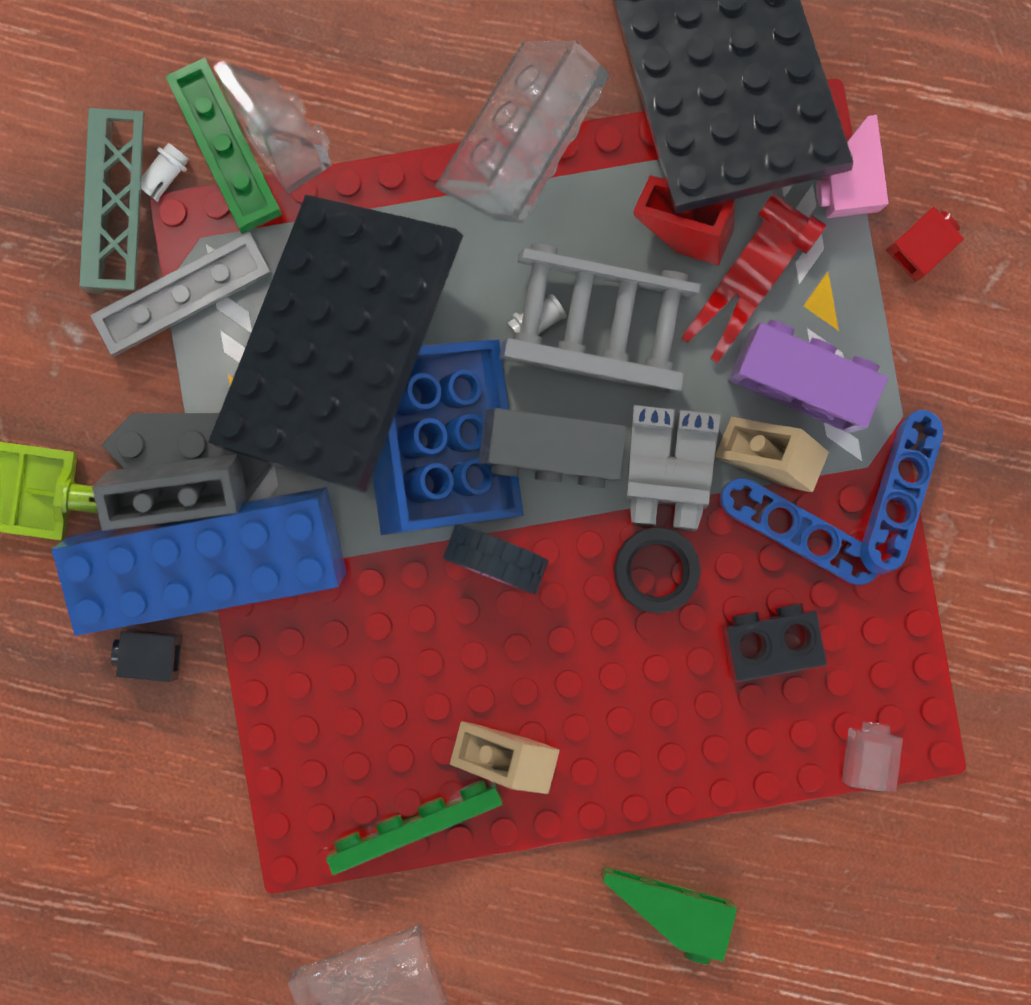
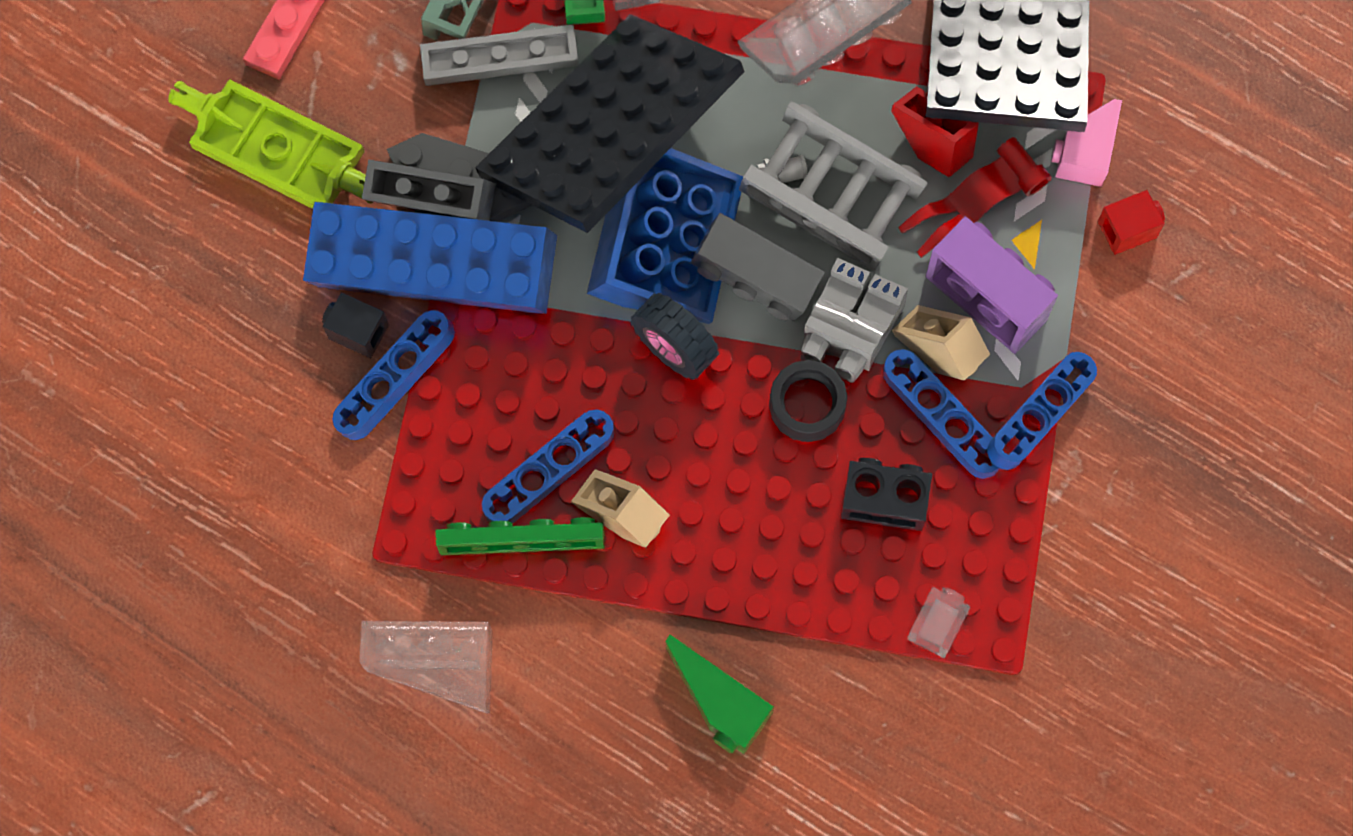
camera: 30 degrees right, 15 degrees down
(217, 698) = (399, 379): none -> blue beam
(416, 740) = (543, 462): none -> blue beam

